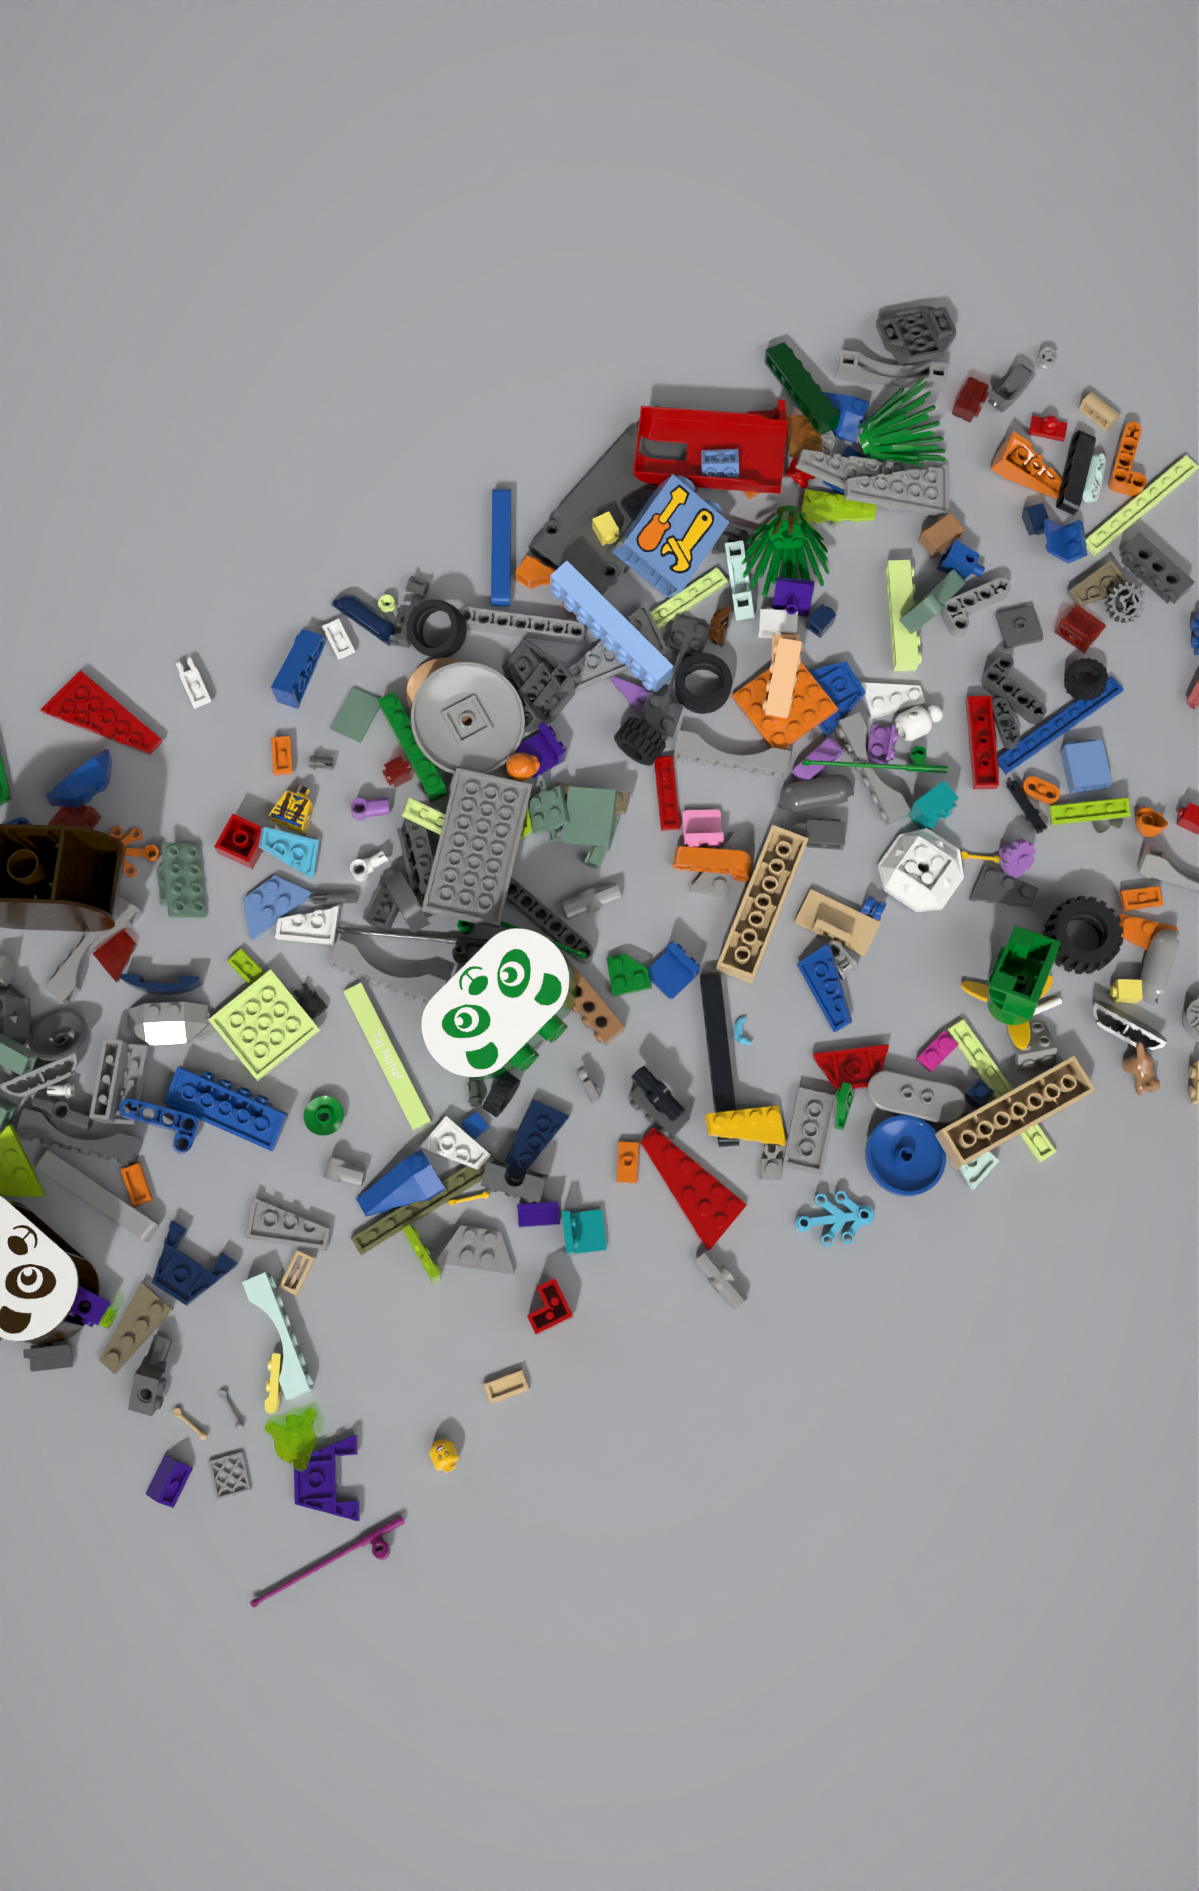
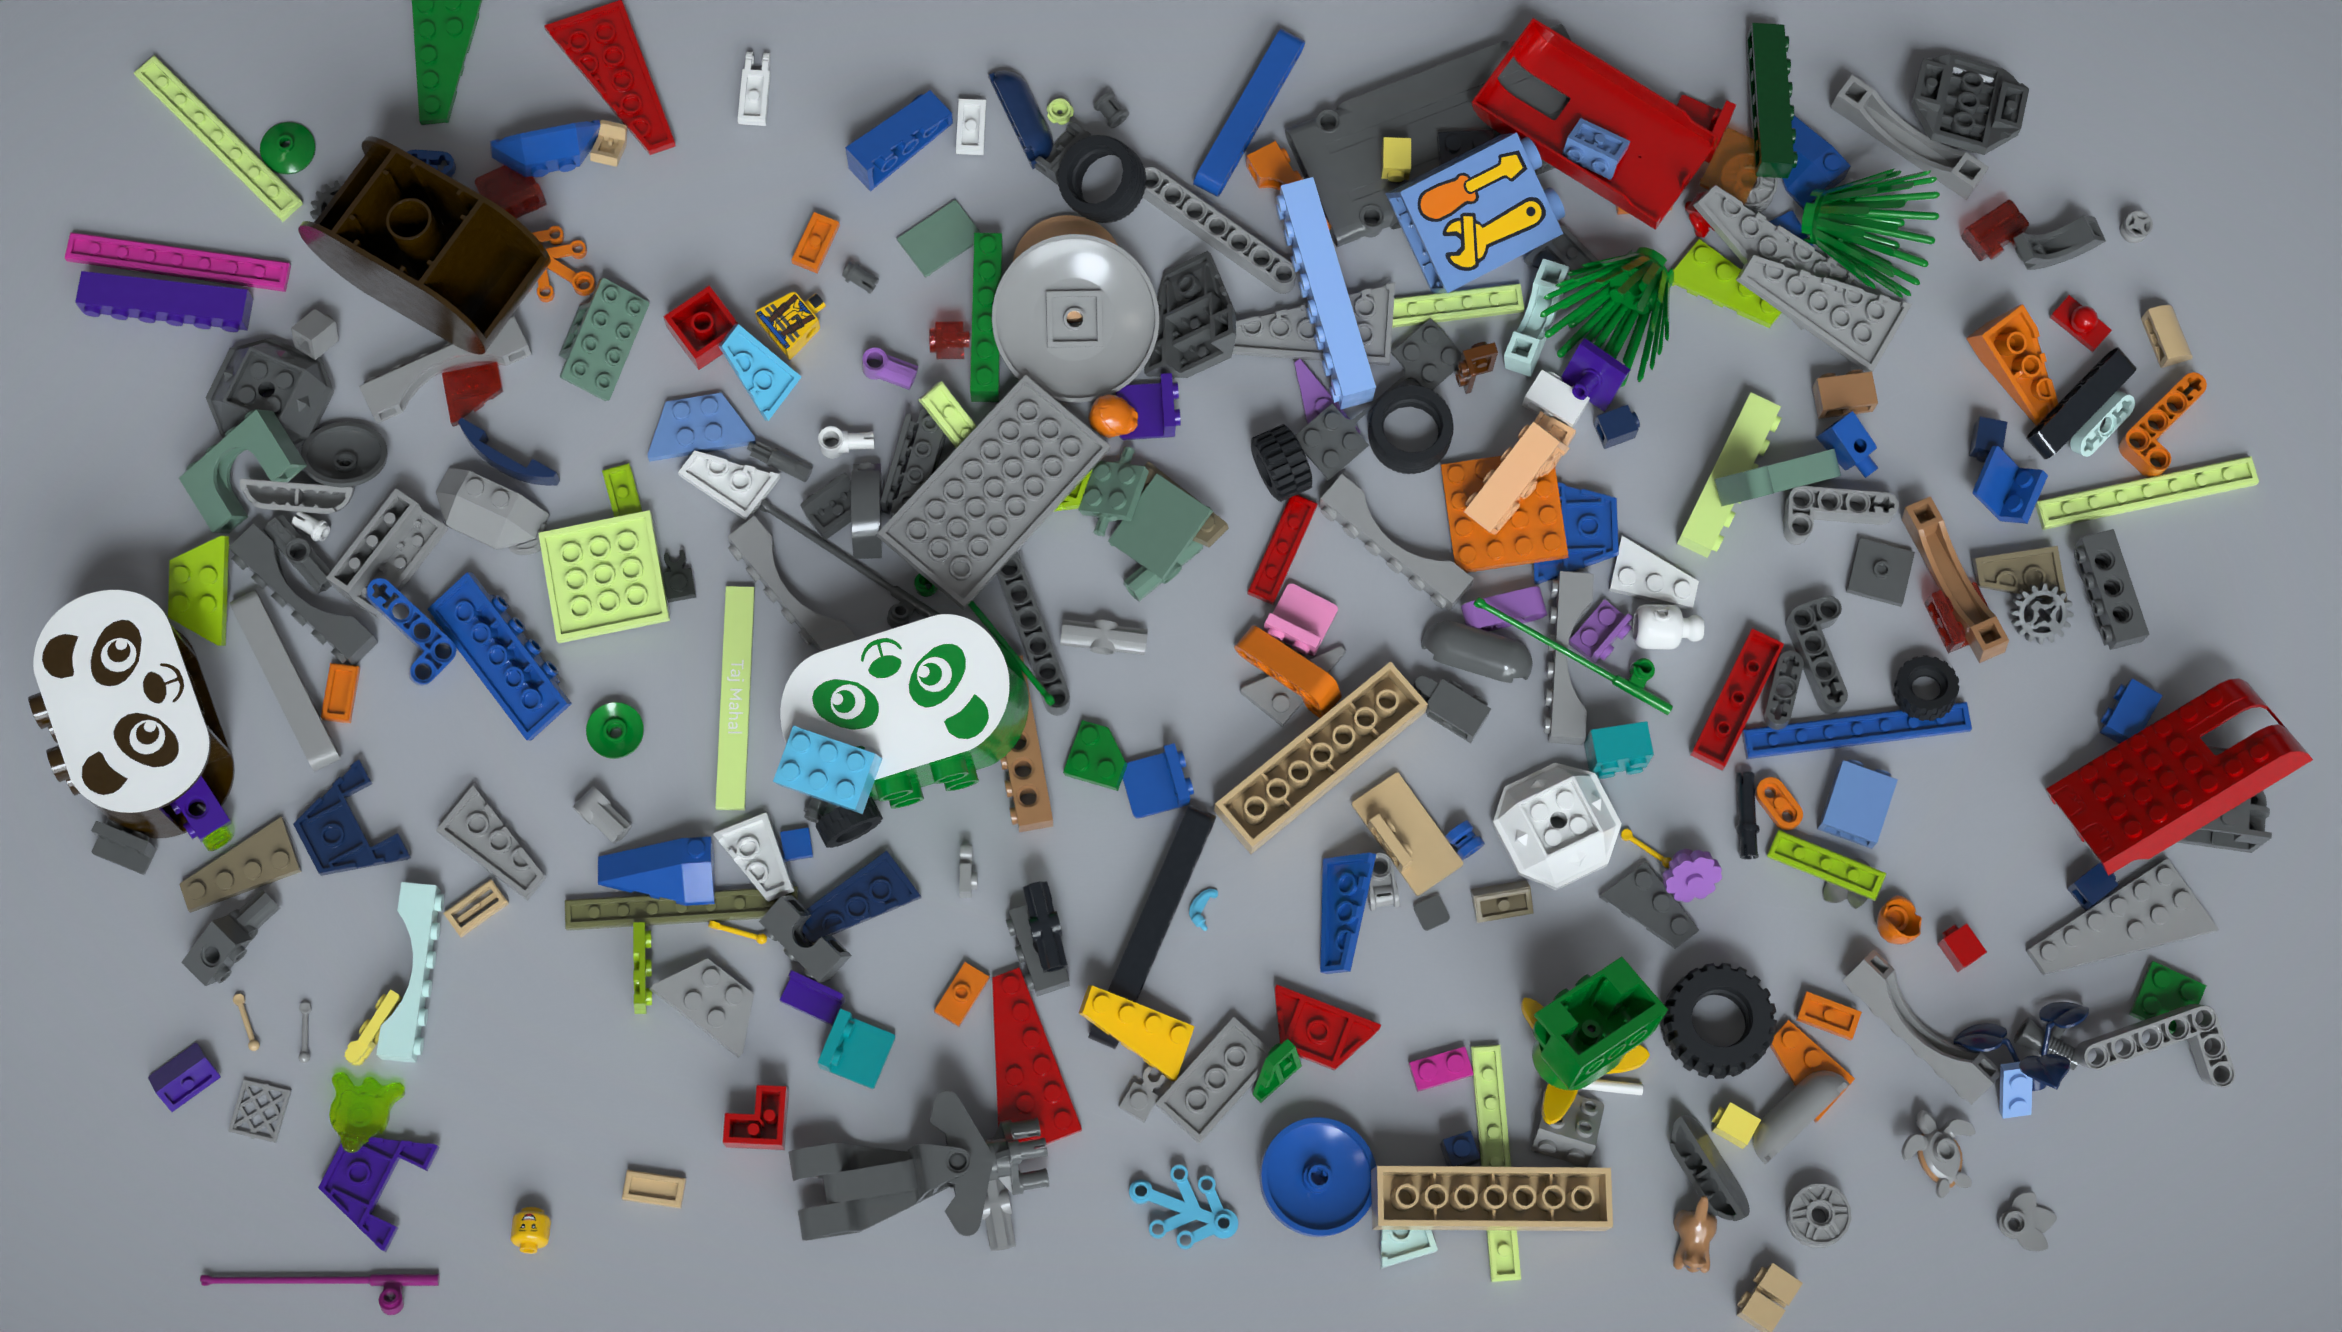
camera: 25 degrees right, 0 degrees up
(121, 760) = (609, 143): none -> tan bracket
(478, 1067) = (827, 769): none -> medium azure brick
(642, 1306) = (877, 1183): none -> dark grey piece
(878, 962) = (1431, 912): none -> dark grey piece
(915, 932) = (1502, 901): none -> dark tan slope
(916, 1097) = (1376, 1110): light grey piece -> none
(1039, 592) = (1935, 547): none -> medium nougat arch

